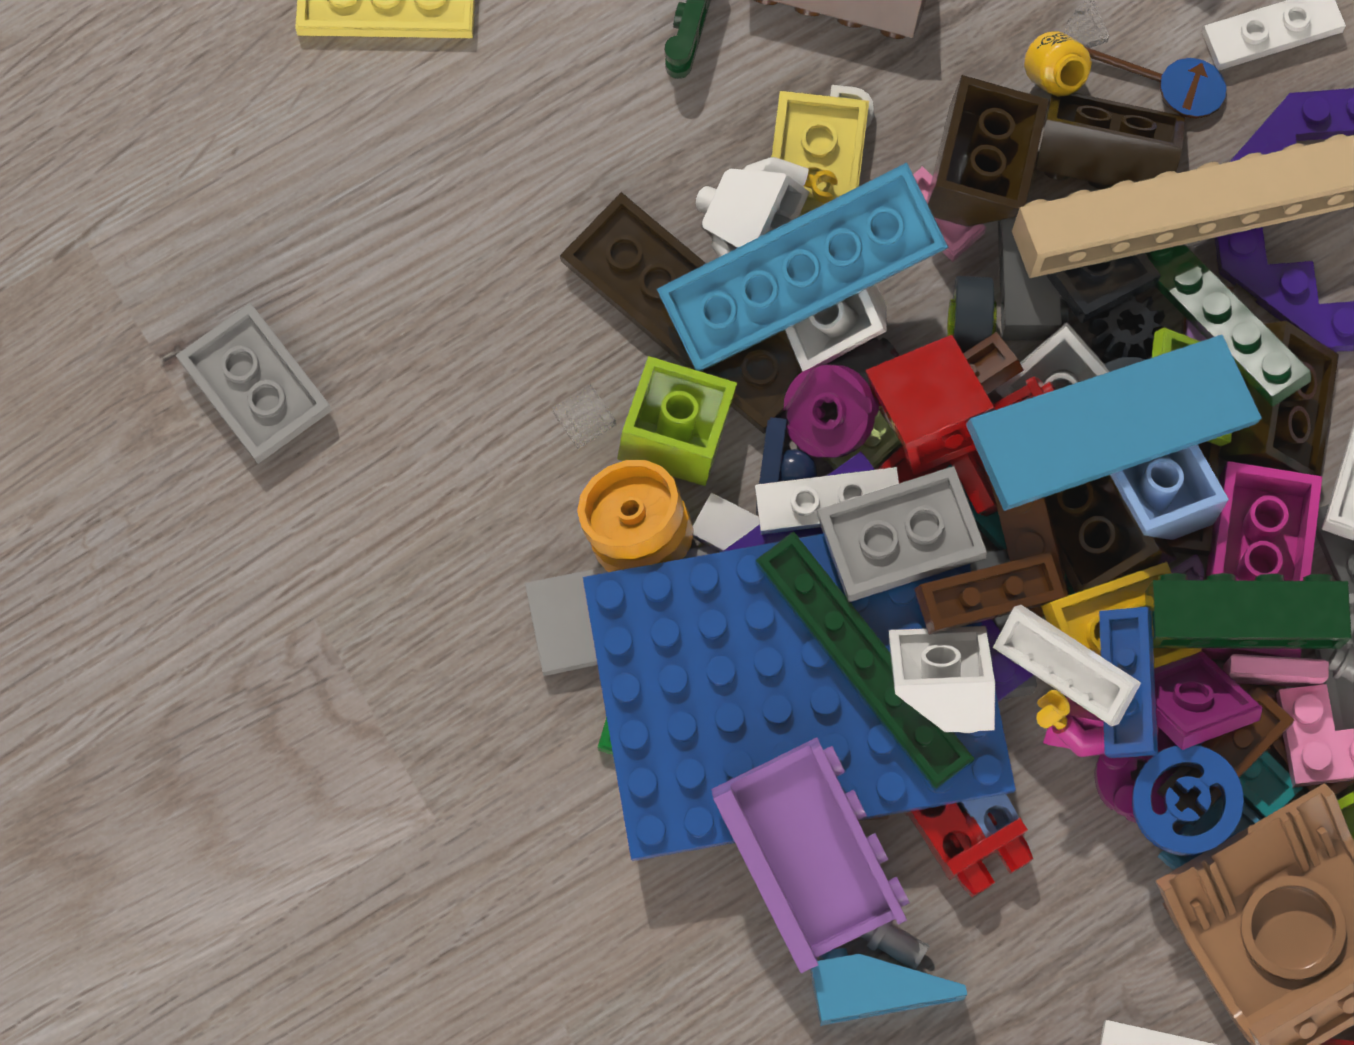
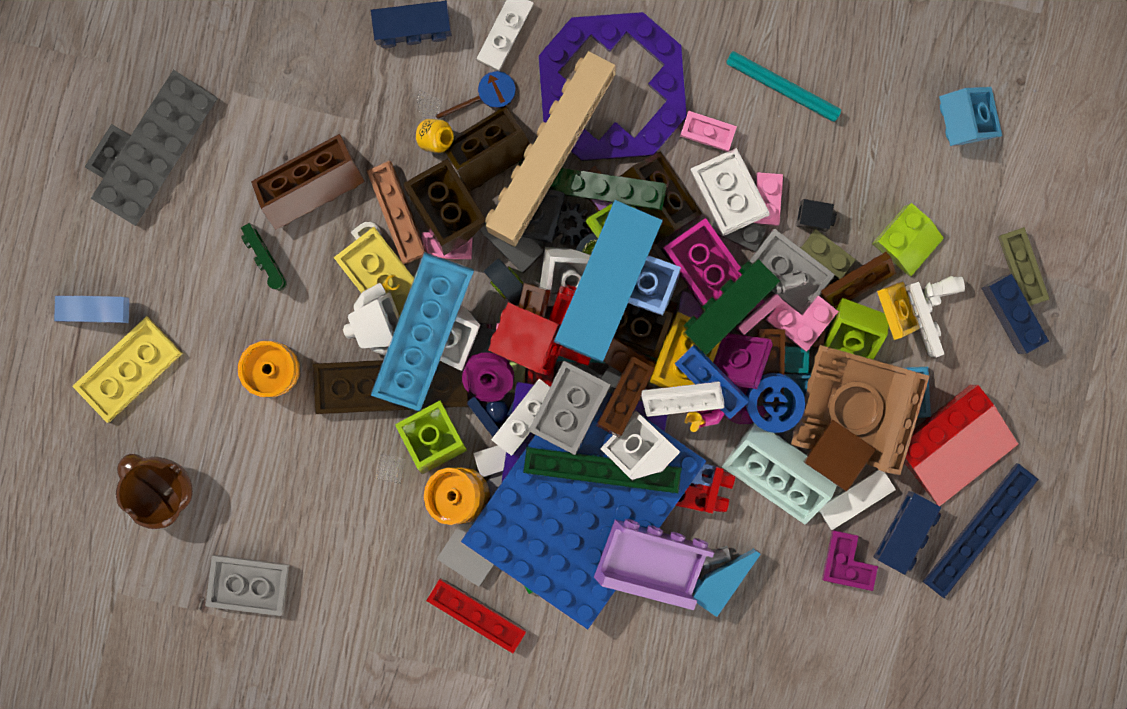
camera: 50 degrees left, 15 degrees up
(266, 148) = (152, 490): none -> reddish brown piece
(500, 707) = (476, 615): none -> red plate
(560, 144) = (257, 379): none -> light orange wheel
(917, 106) = (397, 212): none -> nougat tile
(1101, 919) = (779, 473): none -> light aqua slope
(1209, 964) = (839, 455): none -> reddish brown tile

